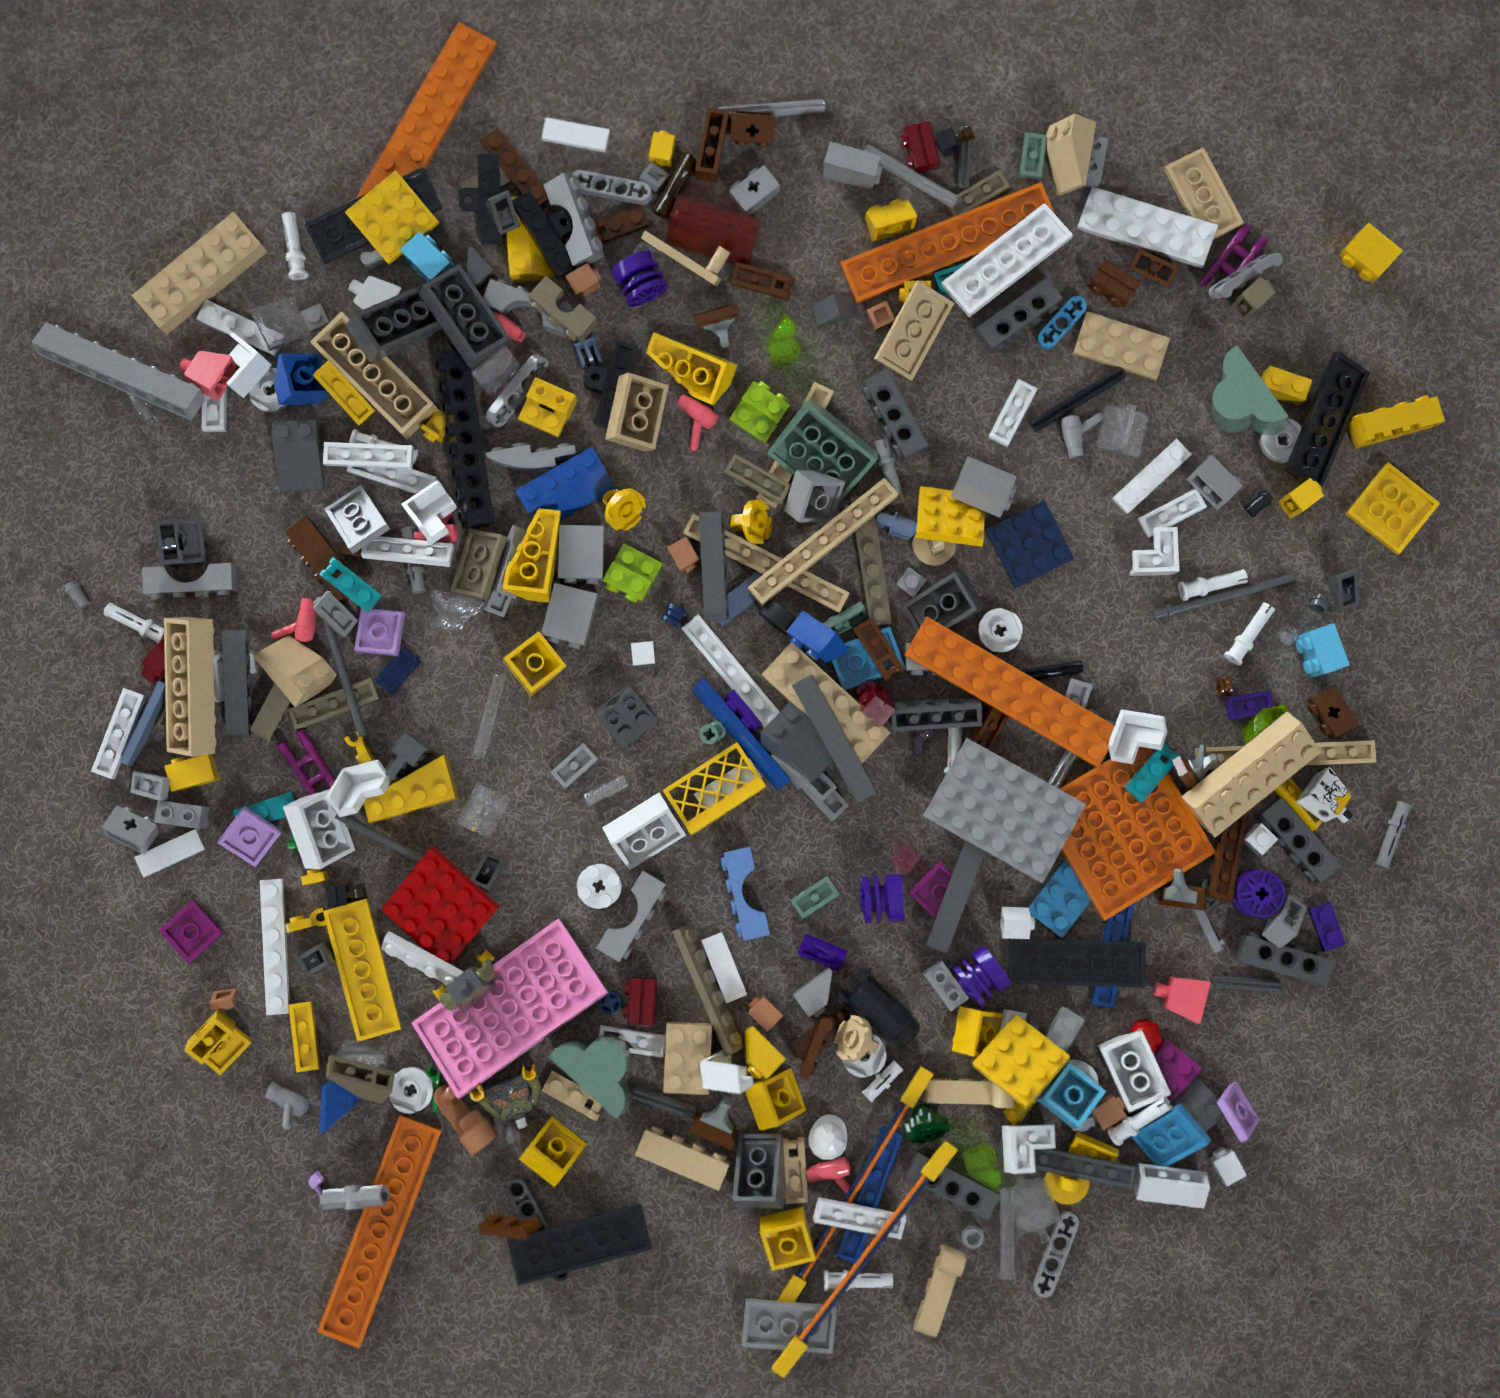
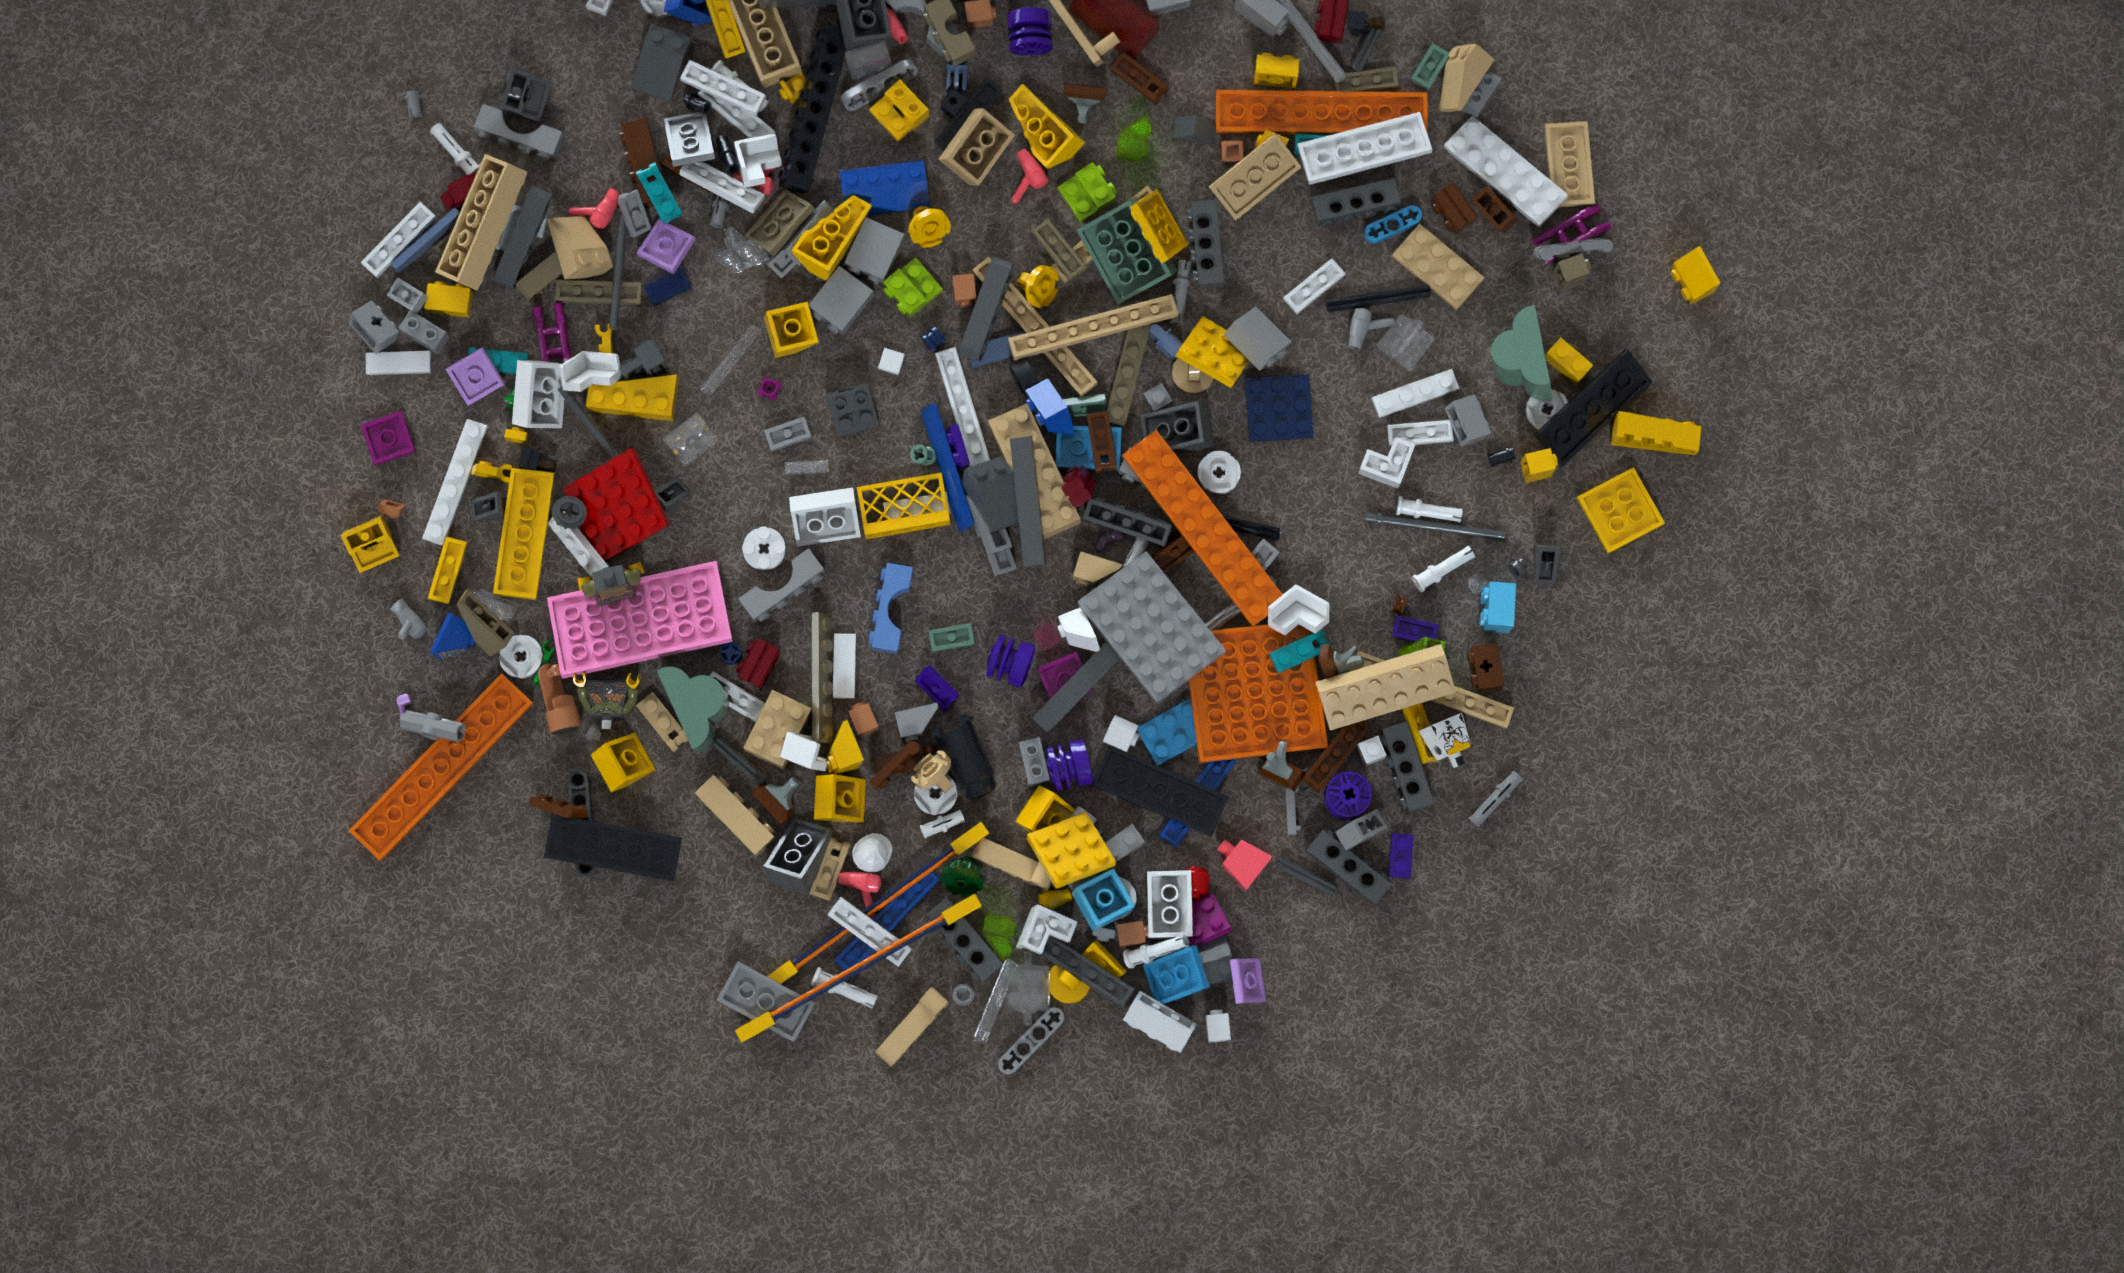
camera: 20 degrees right, 5 degrees down
(347, 480) = (692, 101): none -> black pin
(400, 518) = (727, 154): none -> black pin
(404, 925) = (563, 504): none -> dark grey gear
(523, 459) = (858, 147): light grey slope -> none
(533, 724) = (766, 383): none -> magenta plate
(787, 1238) = (797, 924): yellow slope -> none
(813, 496) = (1102, 285): light grey slope -> none
(845, 418) = (1158, 226): none -> yellow plate
(921, 775) = (1093, 569): none -> tan slope
(933, 841) = (1078, 630): none -> white slope

